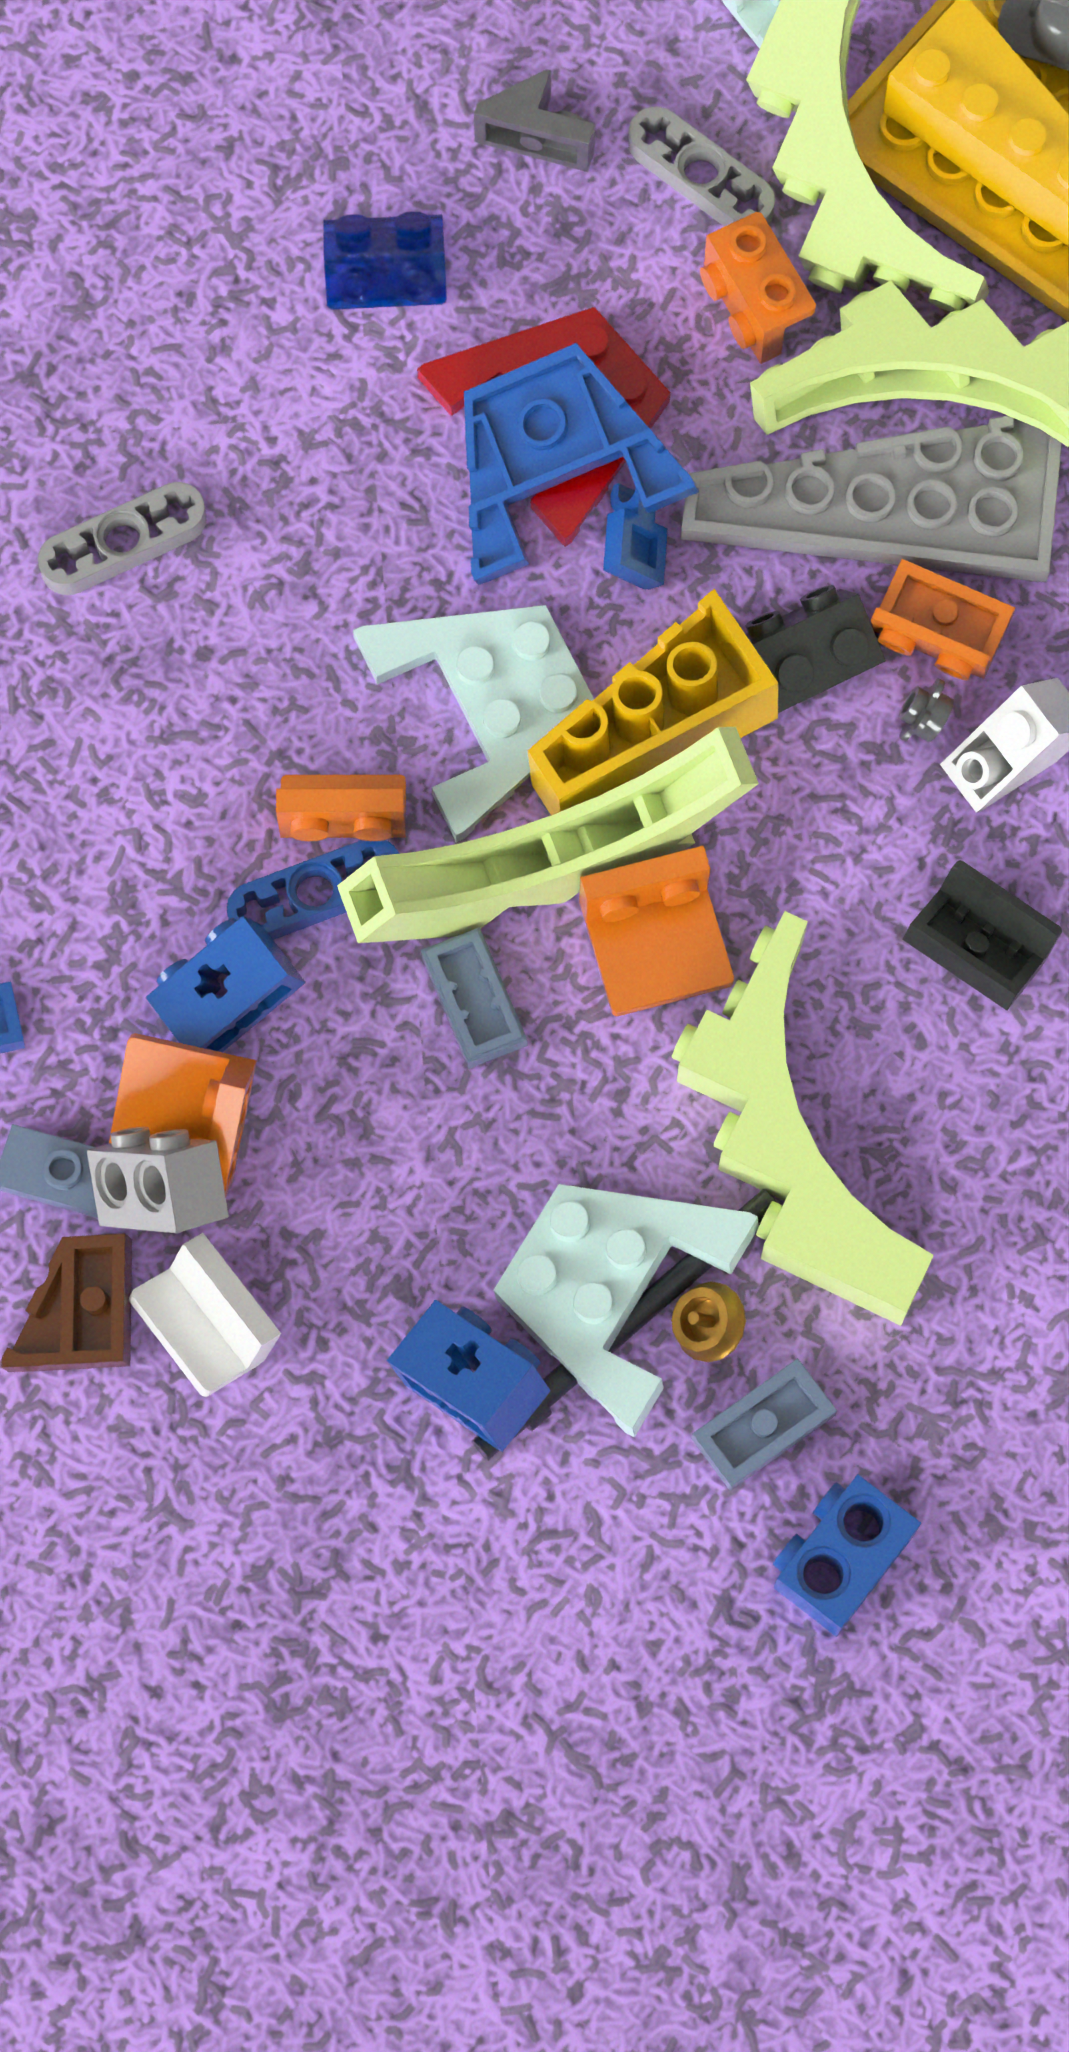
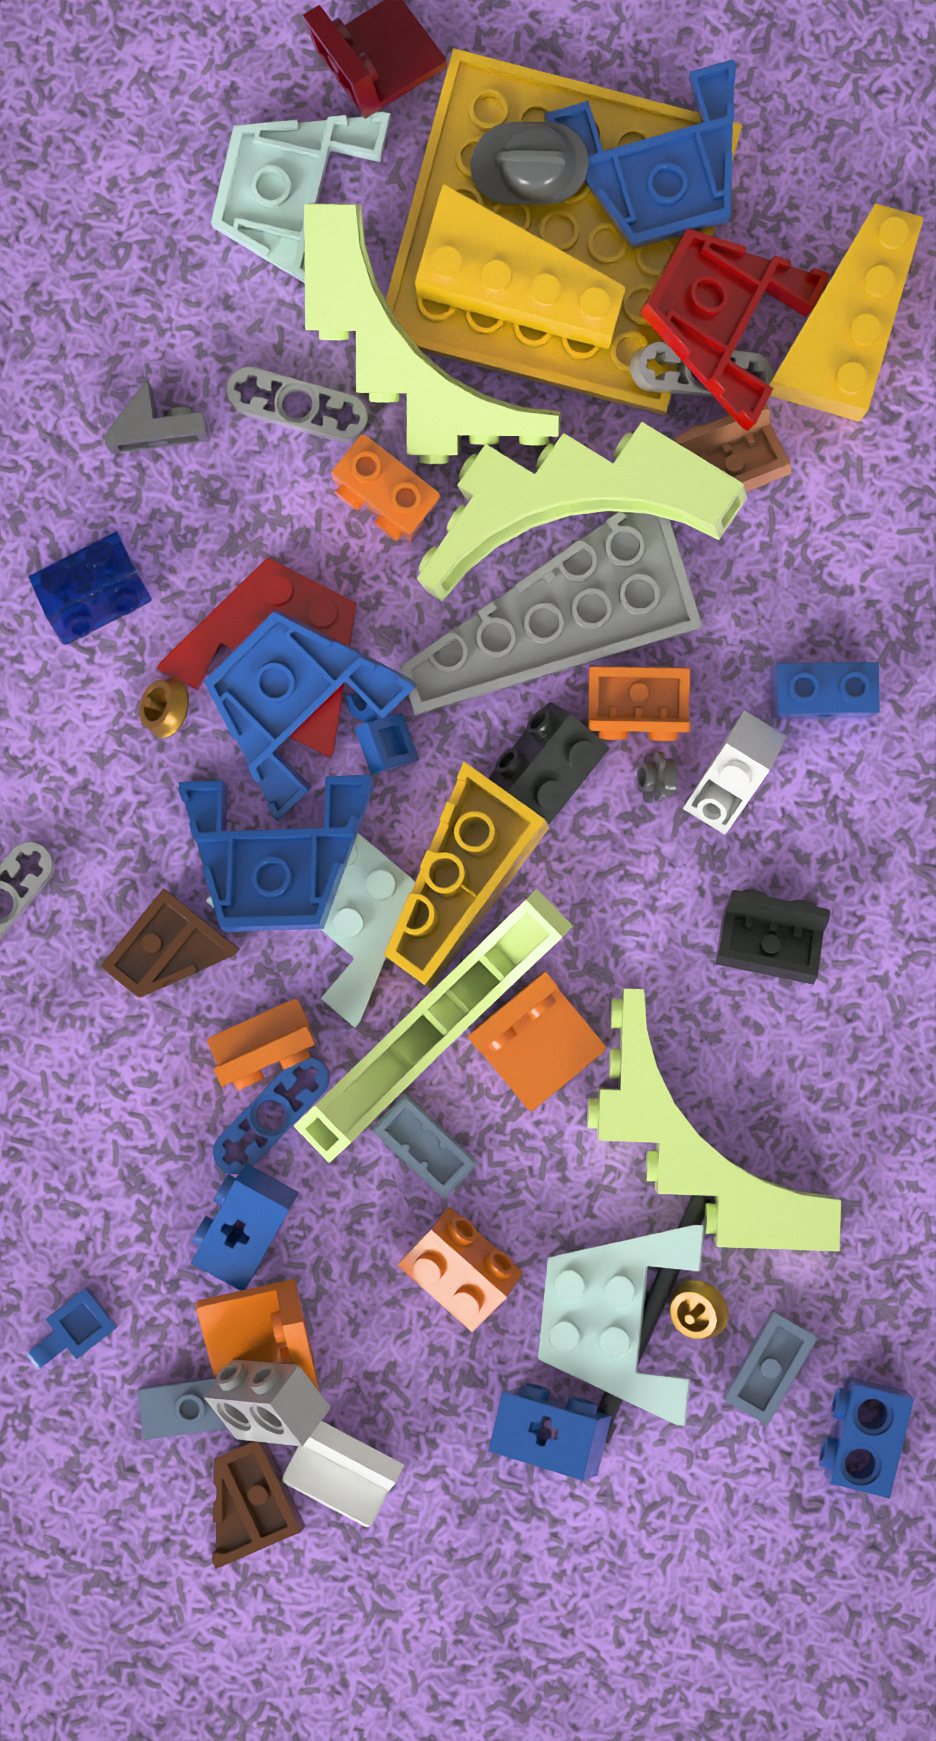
camera: 25 degrees left, 15 degrees up
(284, 660) = (166, 947): none -> reddish brown wing
(406, 408) = (164, 707): none -> pearl gold hat
(449, 1152) = (461, 1269): none -> orange bracket
(451, 625) = (278, 874): none -> blue wing

